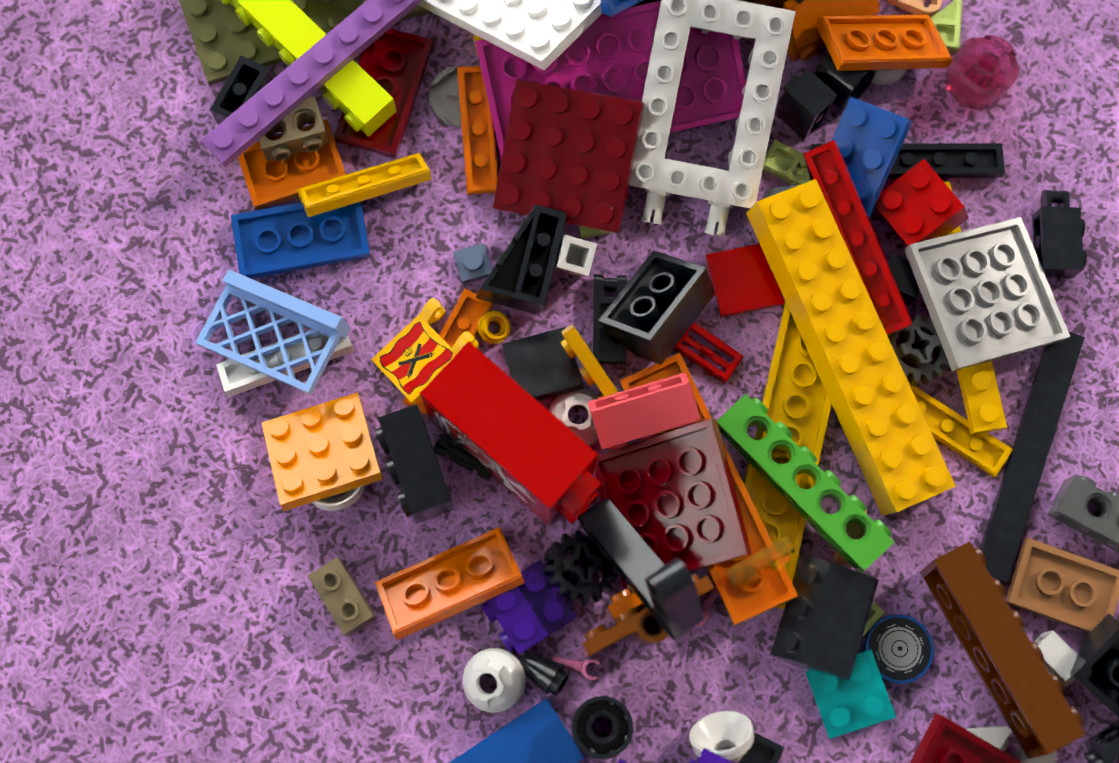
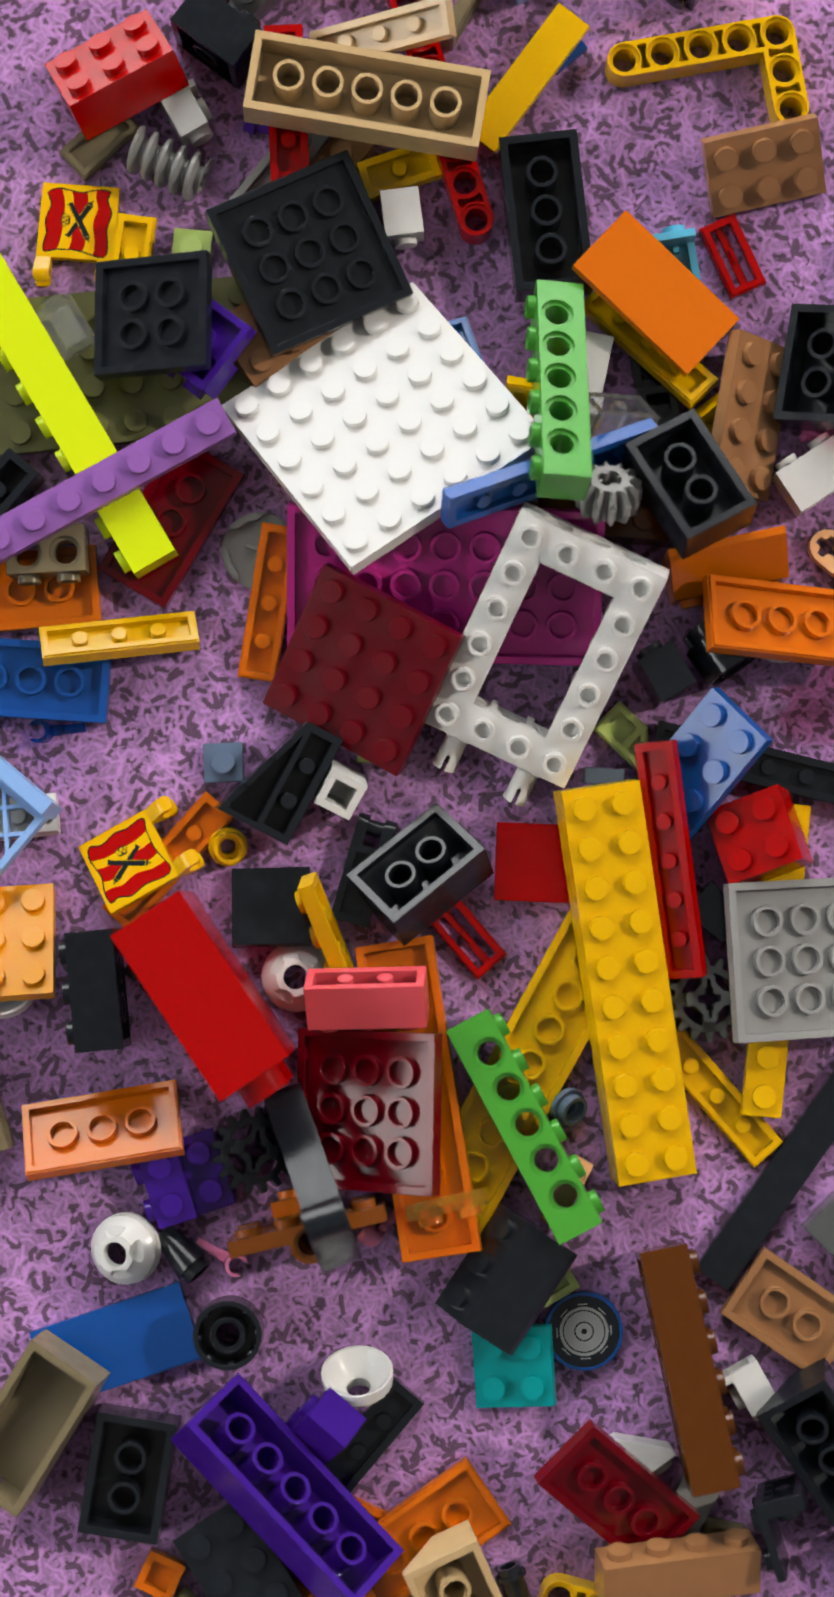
camera: 20 degrees right, 10 degrees up
(328, 272) = (56, 730): none -> clear blue hand
(833, 461) = (569, 1107): none -> sand blue plate

